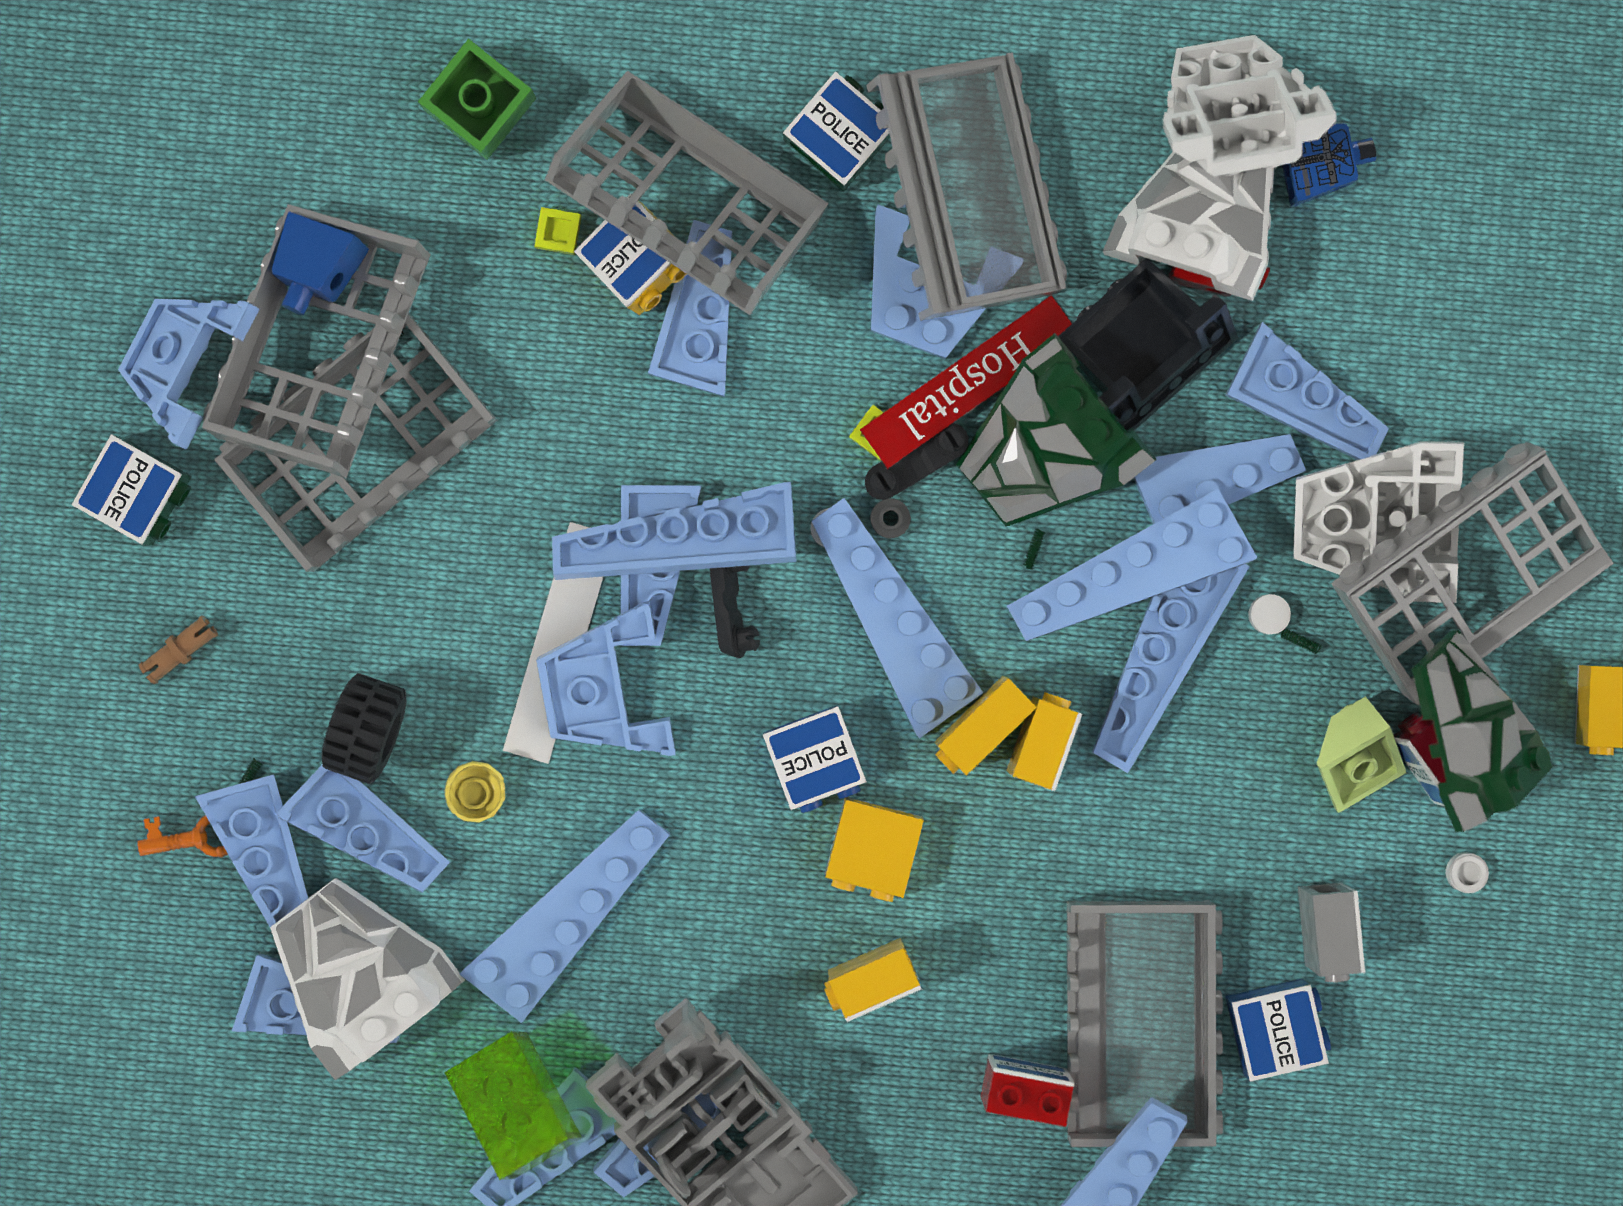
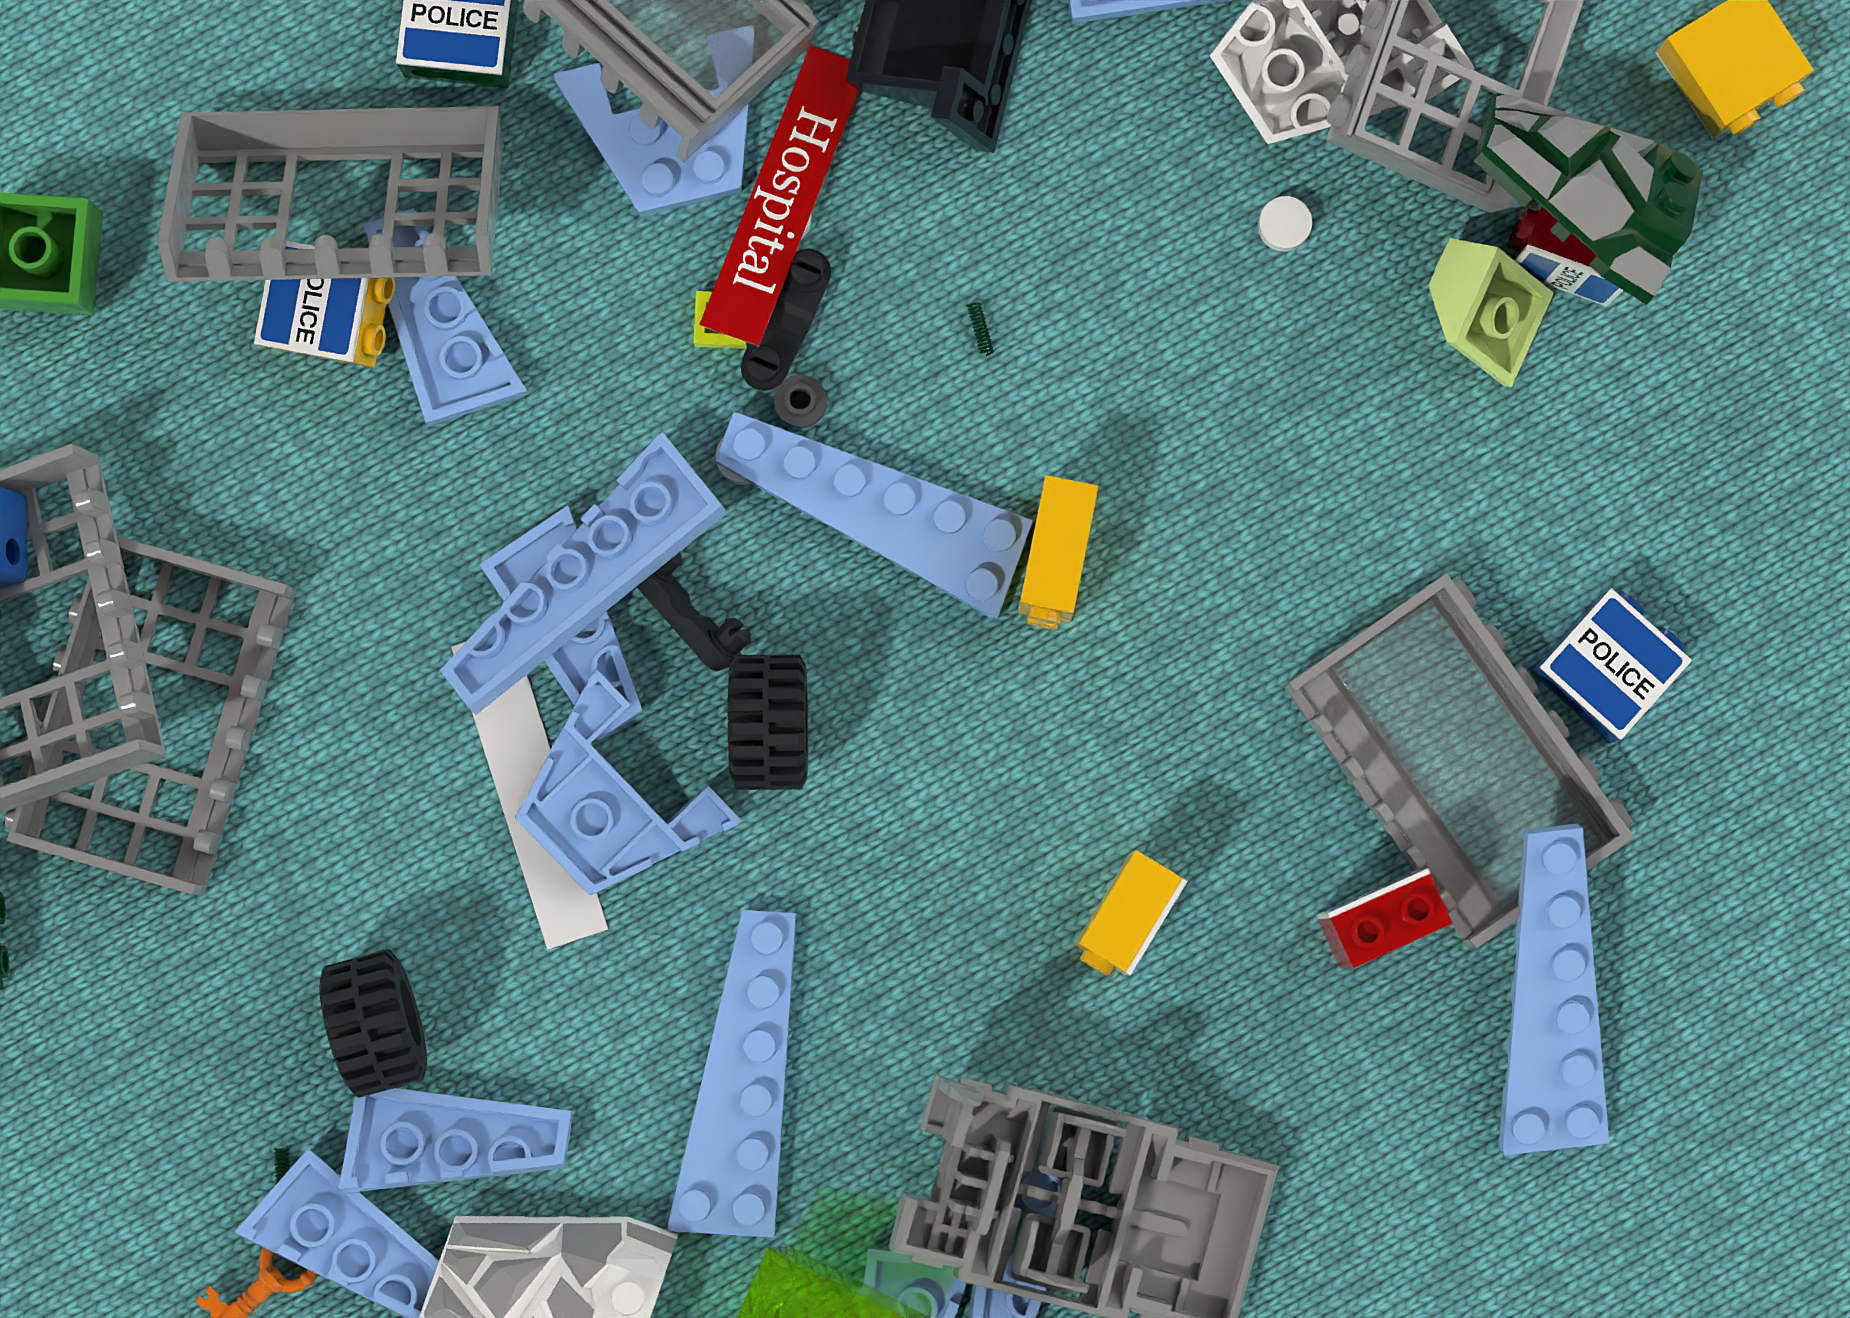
camera: 40 degrees left, 5 degrees down
(178, 649) = (108, 1084): medium nougat pin -> none
(475, 791) = (545, 1012): light yellow hair -> none
(557, 231) = (223, 339): neon yellow tile -> none
(732, 710) = (768, 722): none -> black tyre
(815, 759) = (898, 717): piece -> none
(873, 849) = (1031, 772): yellow piece -> none
(1044, 741) = (1135, 522): yellow piece -> none
(1049, 441) = (914, 196): wedge -> none
(1159, 660) = (1190, 295): light blue wing -> none
(1164, 556) = (1127, 233): light blue wing -> none
(1233, 468) = (1112, 130): light blue wing -> none
(1301, 644) = (1340, 233): dark green leg -> none
(1331, 930) = (1593, 514): light grey piece -> none
(1467, 872) = (1696, 355): white tile -> none

